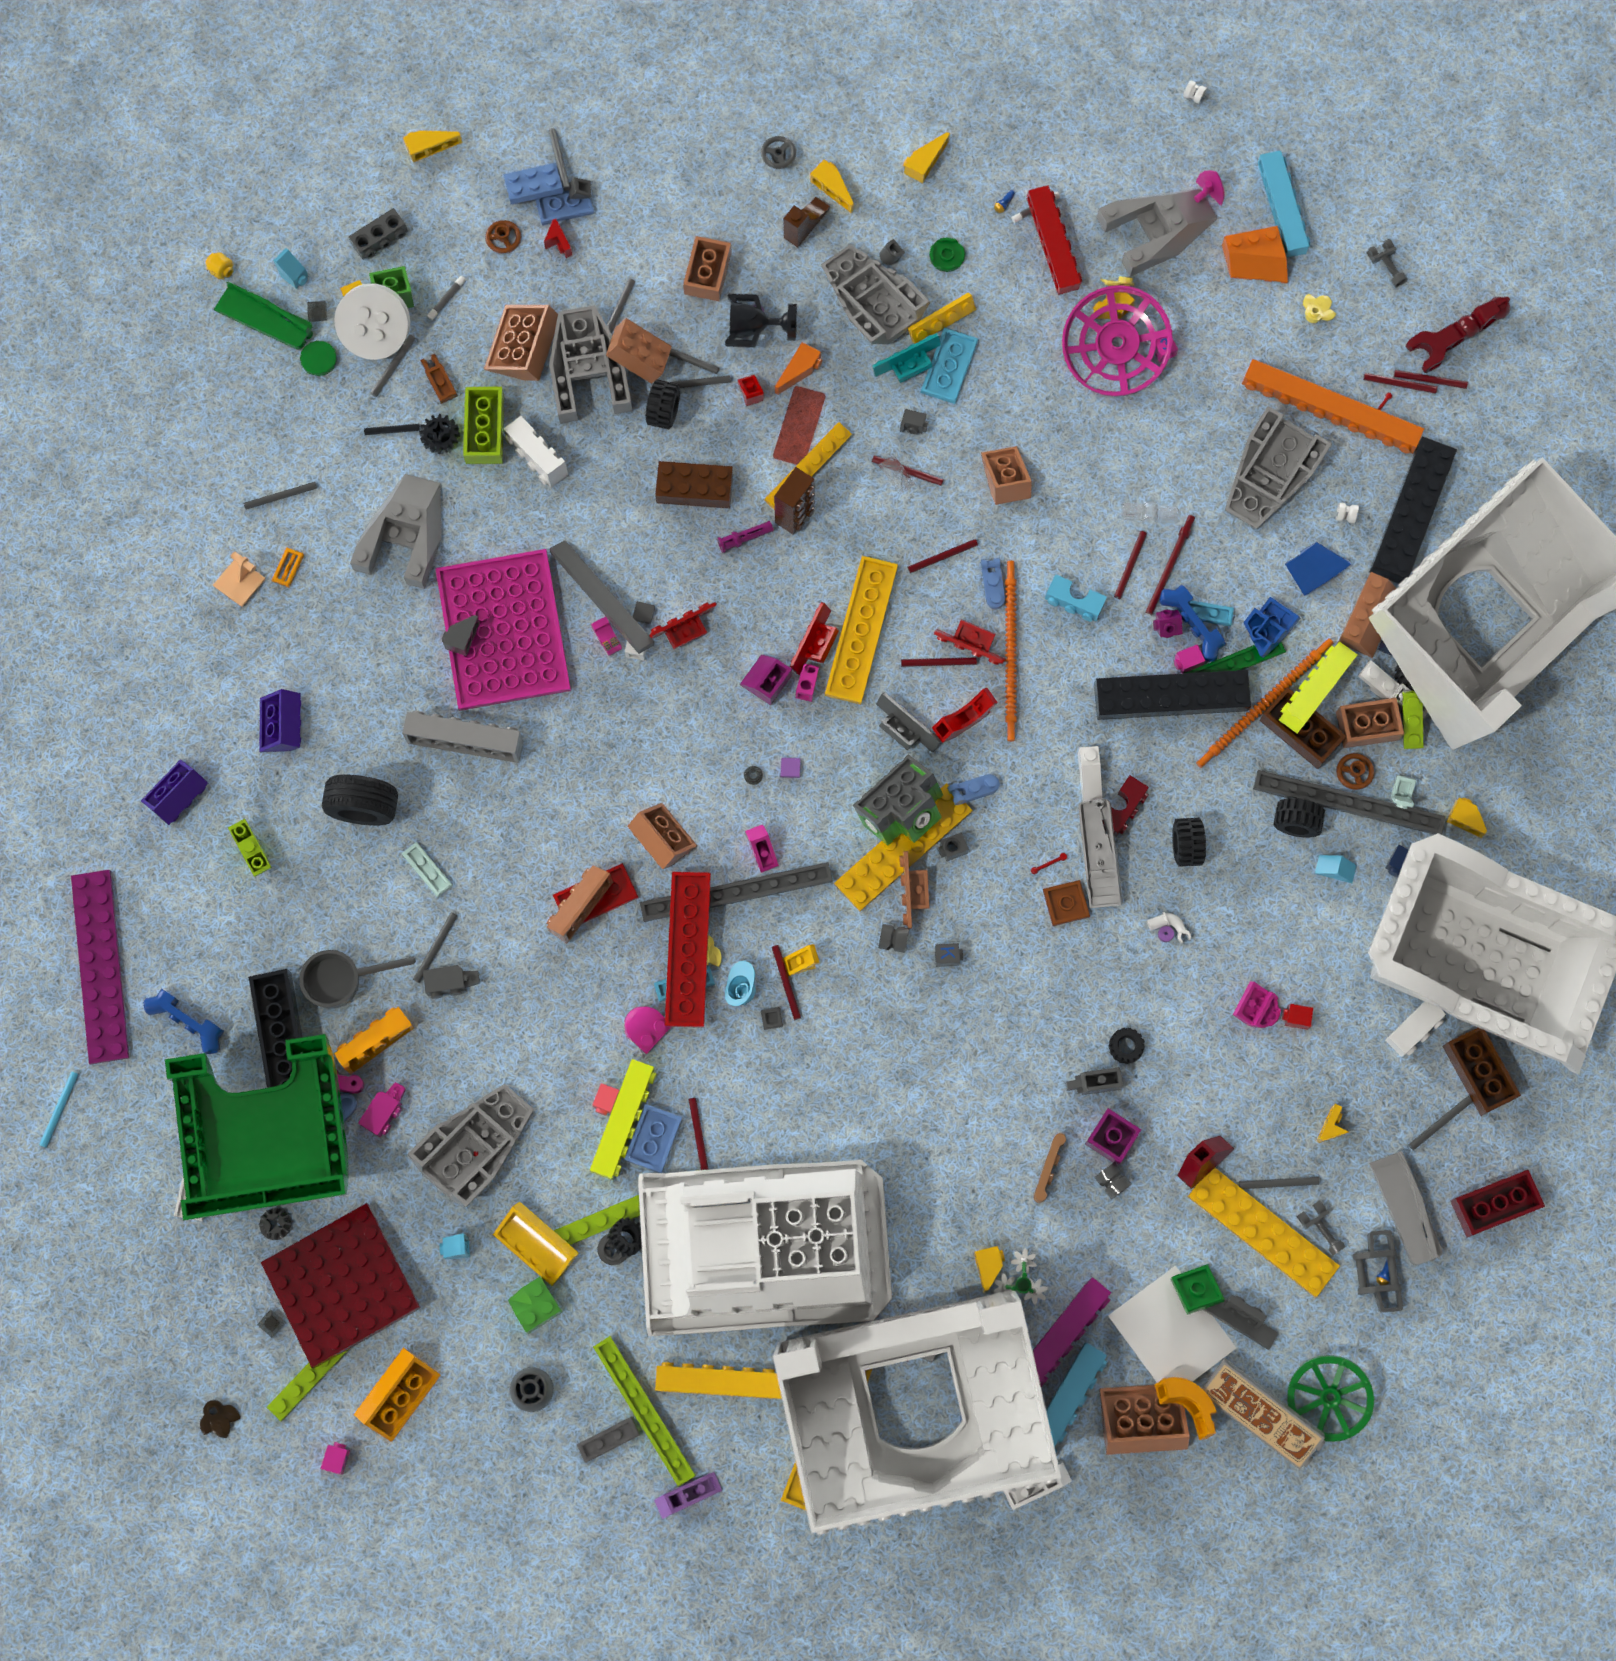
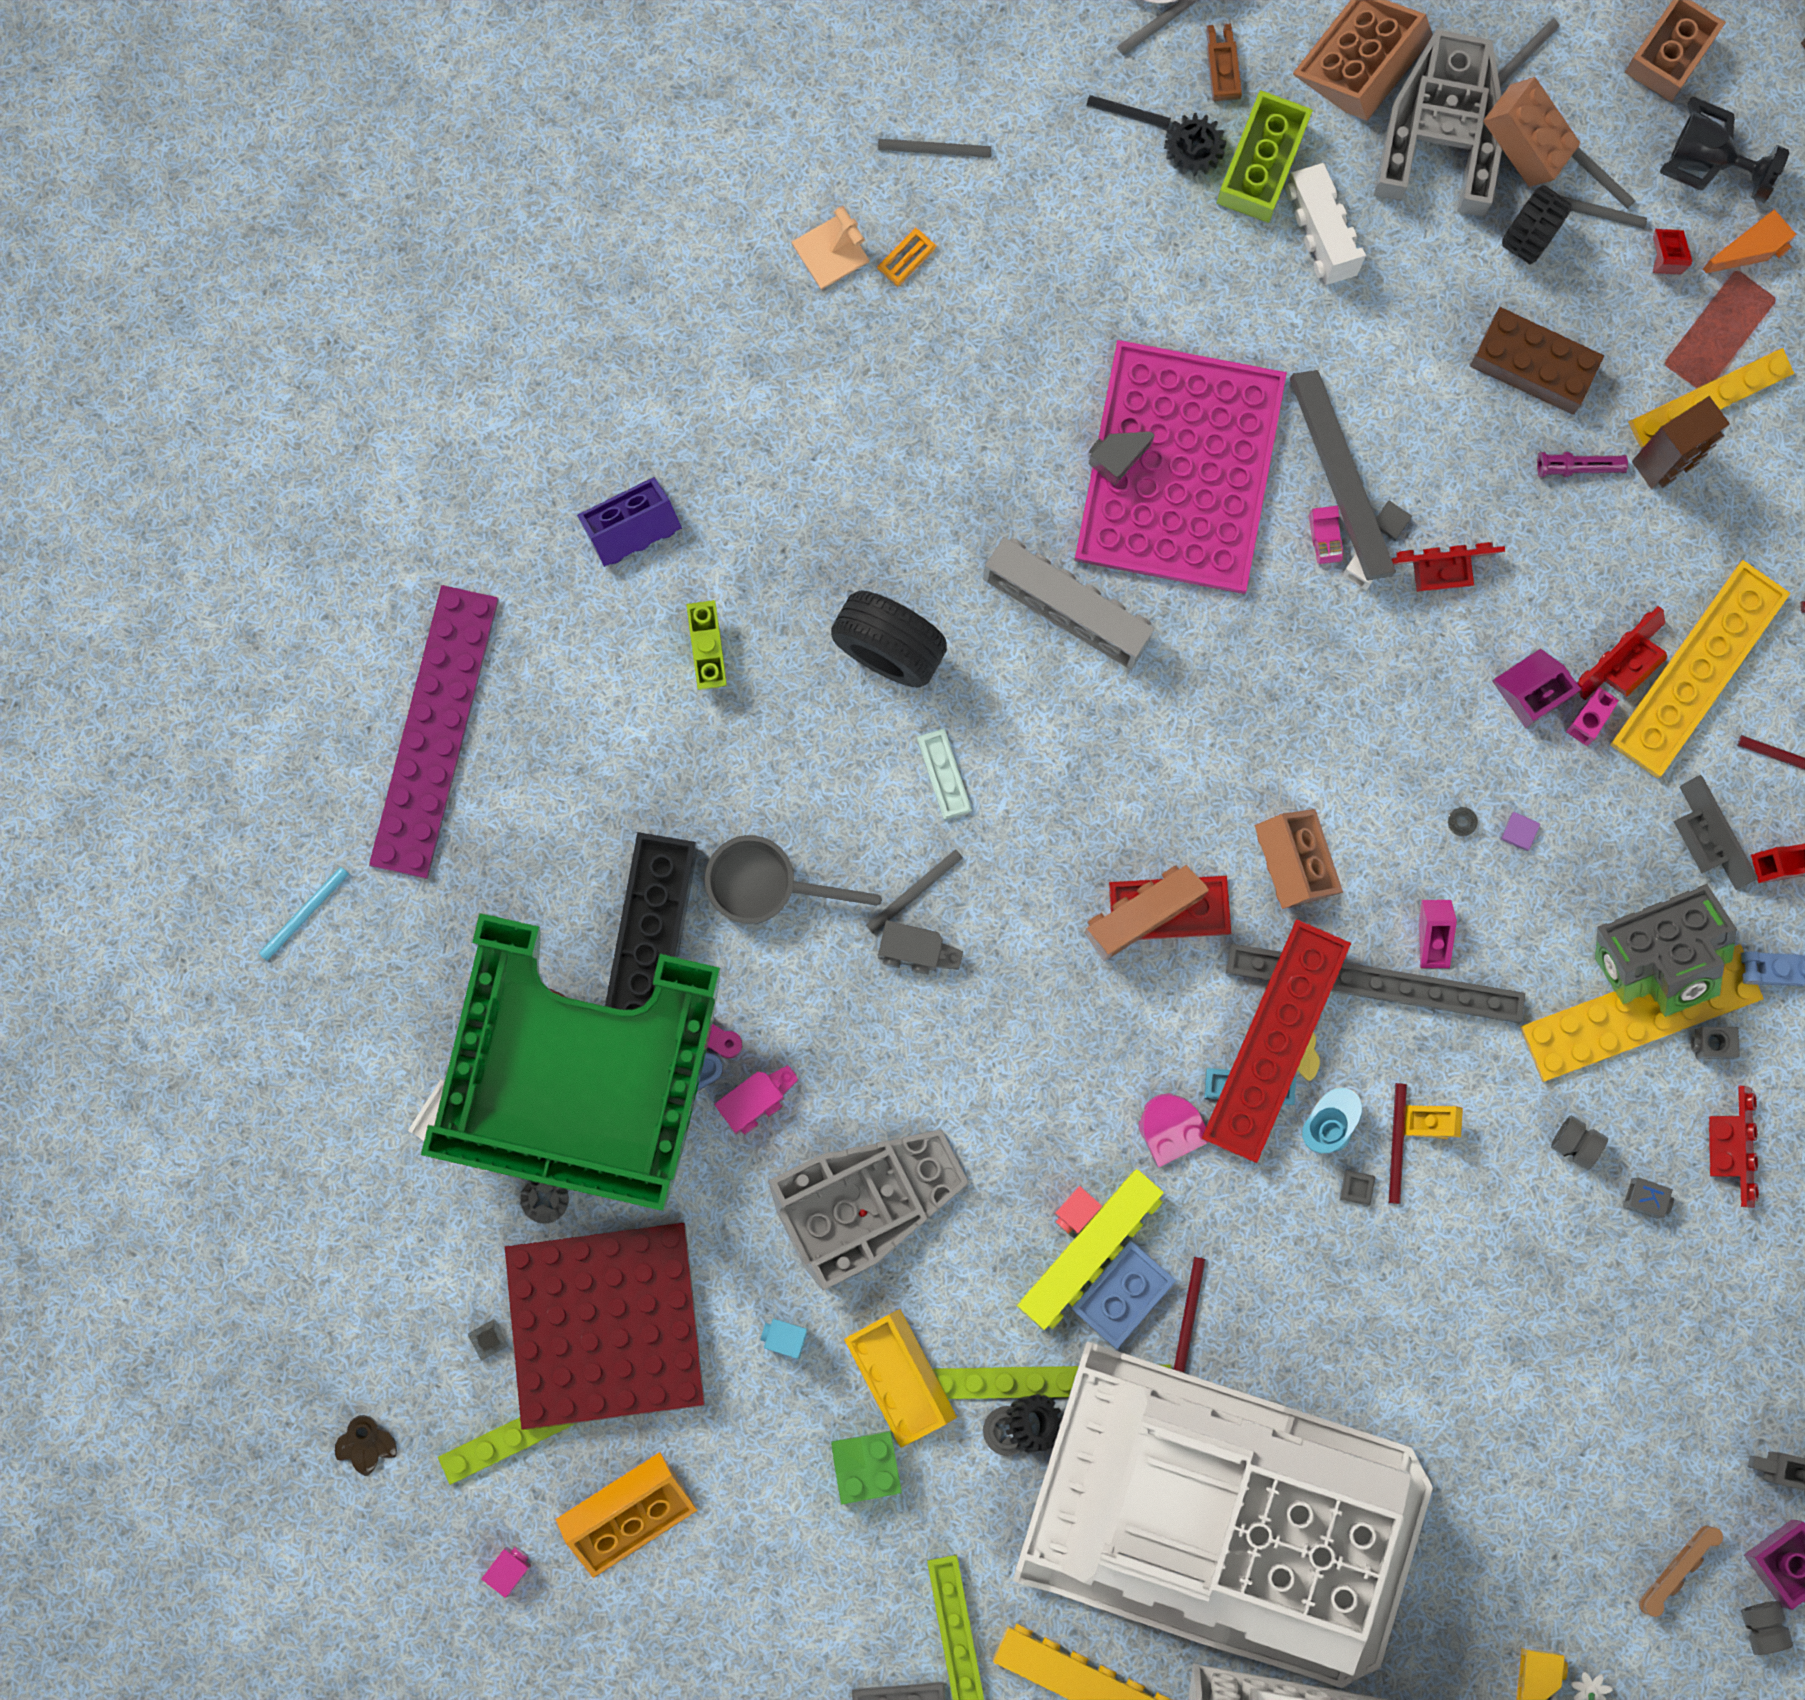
camera: 20 degrees right, 5 degrees up
(208, 1031) = (552, 886): blue plate -> none
(280, 721) = (814, 477): dark purple slope -> none
(373, 1040) = (779, 992): light orange wedge -> none
(406, 519) = (1103, 253): light grey wedge -> none
(522, 1403) = (832, 1608): dark grey wheel -> none
(916, 889) = (1637, 1082): nougat bracket -> none
(987, 904) = (1733, 1147): none -> red bracket

